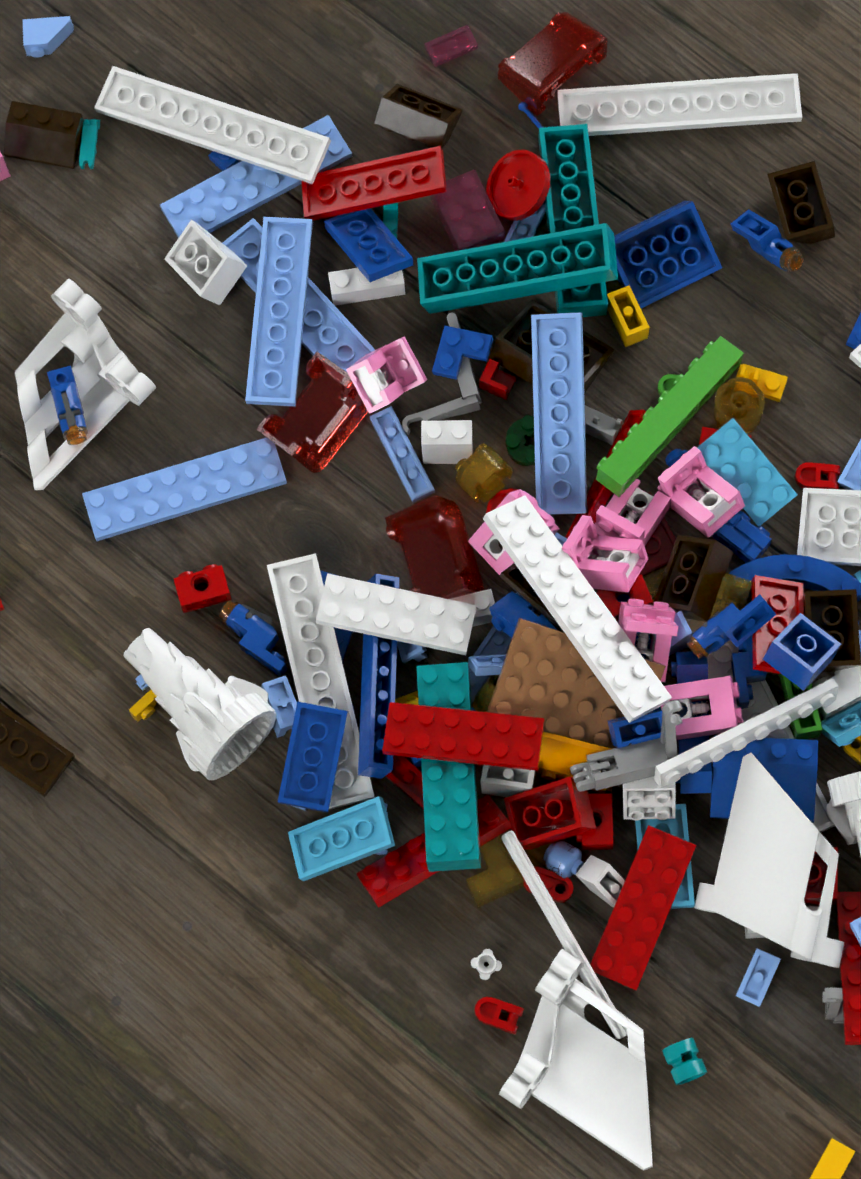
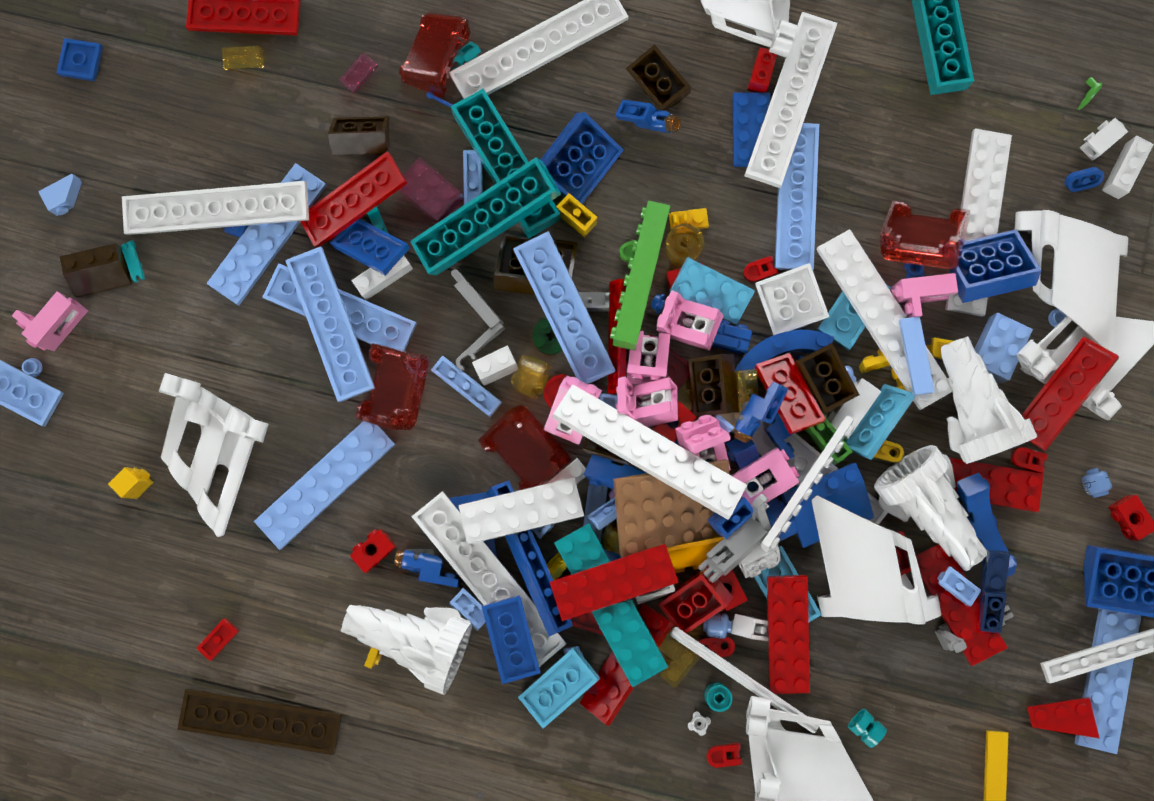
camera: 30 degrees left, 10 degrees up
(68, 405) = (211, 464): blue plate -> none
(205, 263) = (260, 313): white slope -> none
(386, 374) = (428, 338): bright pink brick -> none
(458, 344) = (468, 292): blue plate -> none
(496, 381) = (507, 302): red panel -> none
(518, 184) = (455, 154): red piece -> none
(523, 939) = (717, 696): none -> teal wheel
(588, 78) = (466, 54): none -> teal plate
(758, 977) = (888, 644): light blue plate -> none
(801, 651) = (820, 408): blue brick -> none

